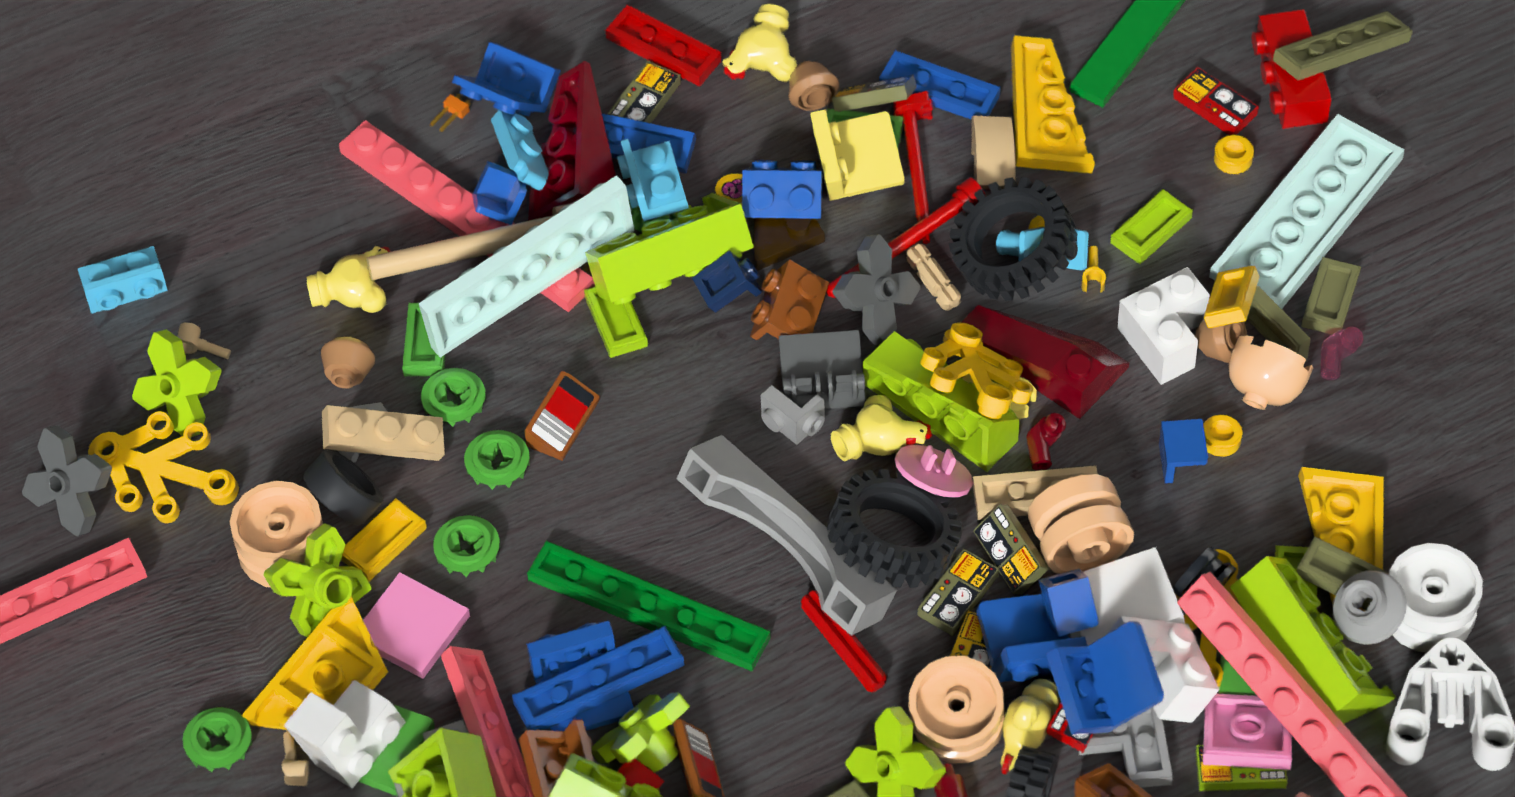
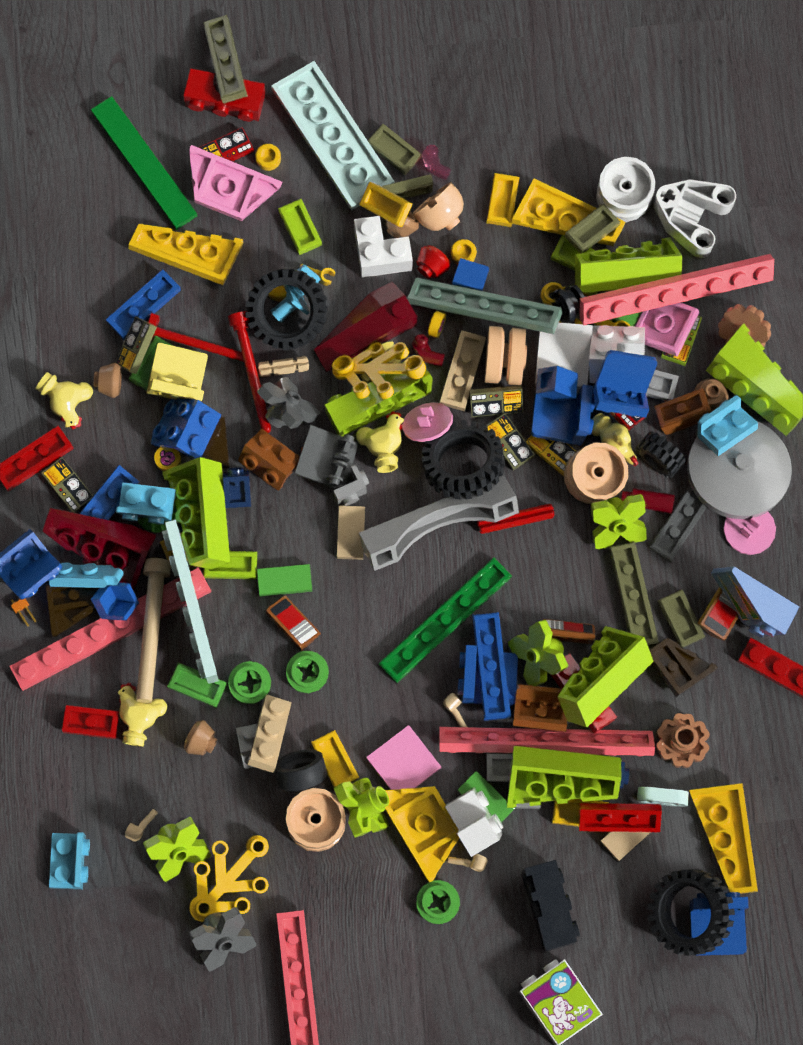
camera: 75 degrees left, 20 degrees up
(322, 233) = (90, 722): none -> red plate
(468, 151) = (68, 606): none -> dark brown wing
(473, 531) = (370, 702): bright green gear -> none
(518, 656) = (451, 702): none -> tan hand
(620, 387) = (284, 580): none -> bright green tile
(744, 432) = (350, 523): none -> tan tile
(993, 150) = (208, 292): tan slope -> none
(1090, 434) = (436, 324): none -> yellow tile
(1144, 473) = (485, 305): none -> sand green plate
(1162, 119) = (227, 185): none -> bright pink wing
(1180, 394) = (432, 262): none -> red cone
(1337, 452) = (502, 200): none -> yellow tile
(1383, 614) = (618, 214): light grey piece -> none

